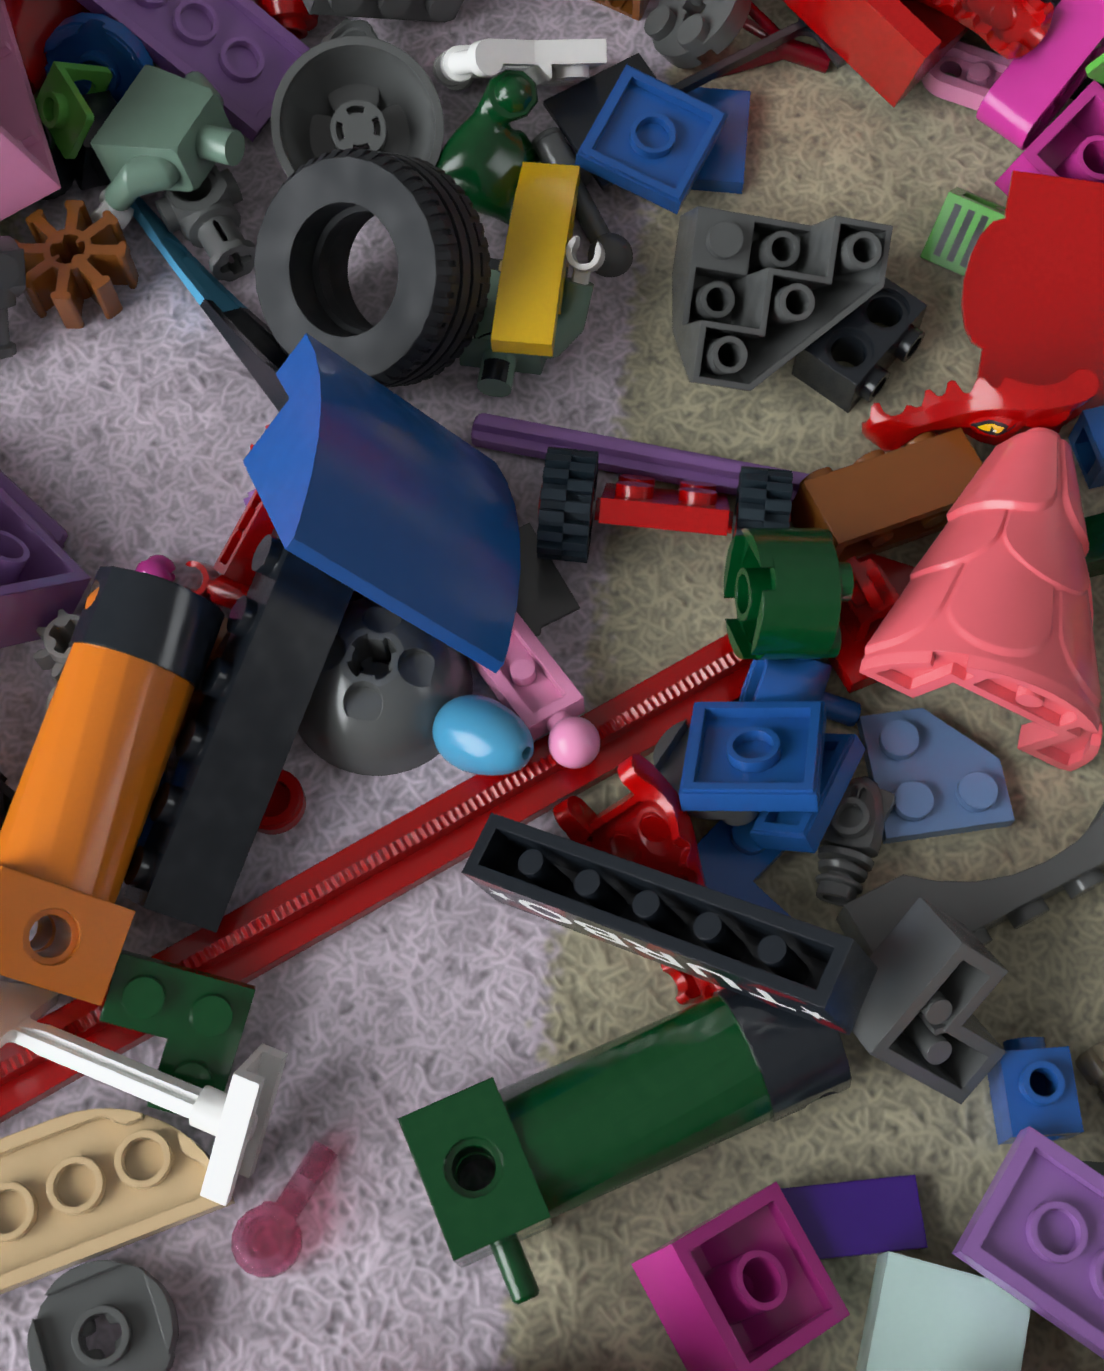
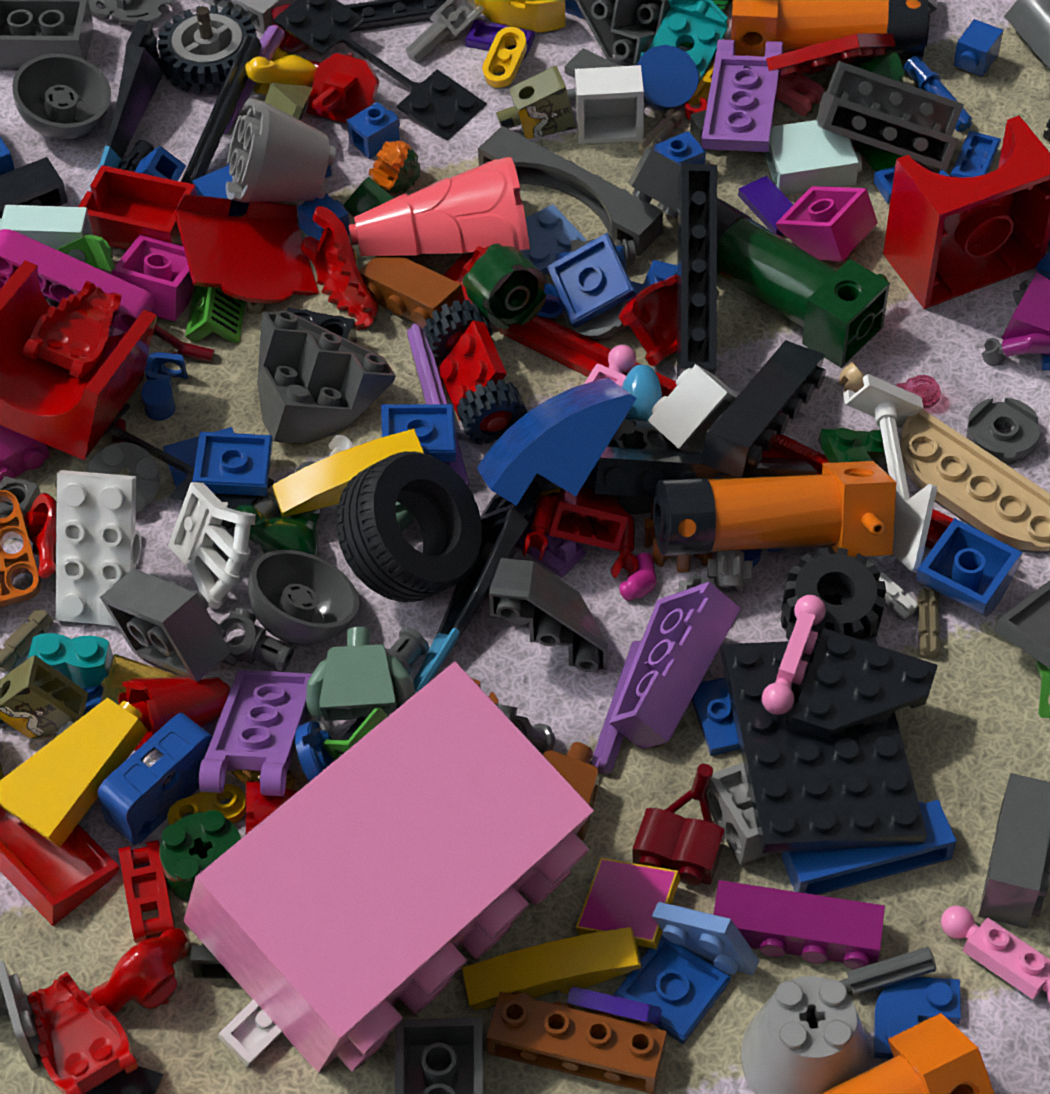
camera: 115 degrees left, 15 degrees down
(151, 401) = (555, 612): none -> dark grey brick
(317, 891) = (763, 409): none -> black brick
(355, 1123) = (852, 377): none -> tan hinge
(373, 780) = (691, 408): none -> white piece
(581, 391) = (431, 422): none -> blue tile
(844, 112) = (157, 389): none -> blue leg
(931, 173) = (185, 349): none -> dark red plant

